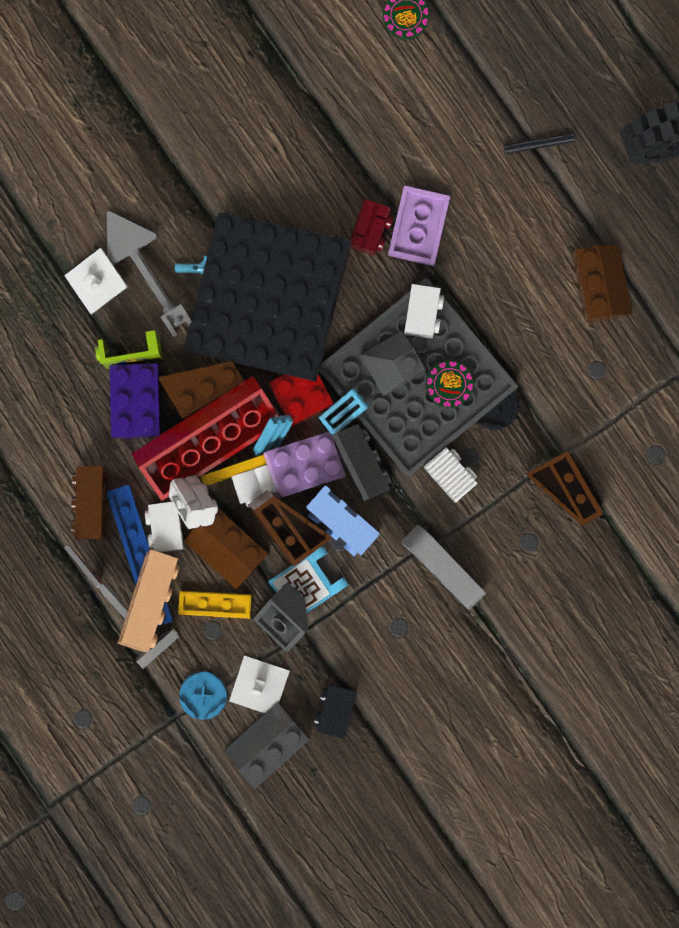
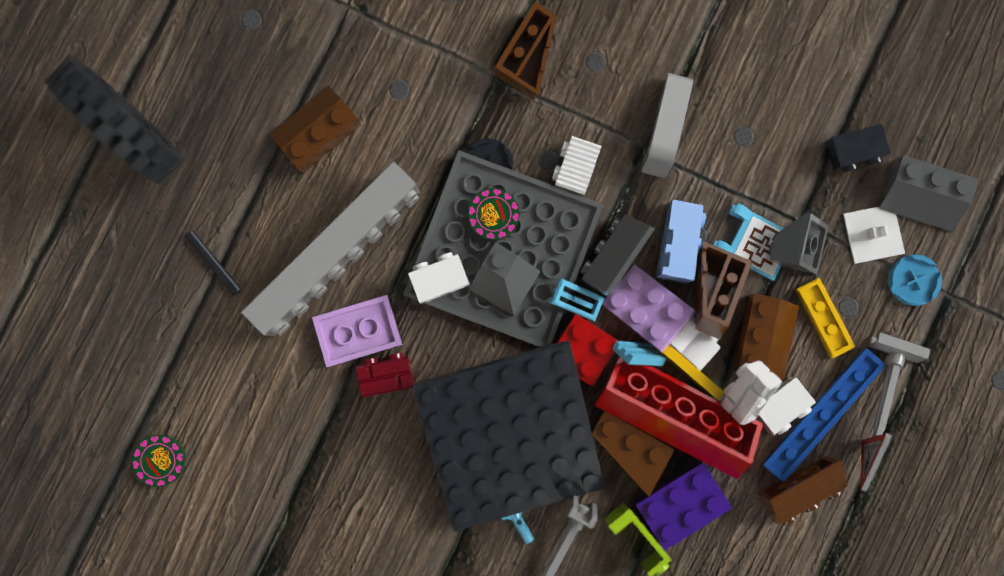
camera: 120 degrees left, 0 degrees up
(148, 601) = (867, 380): light nougat brick -> none
(493, 241) = (332, 251): none -> light grey brick

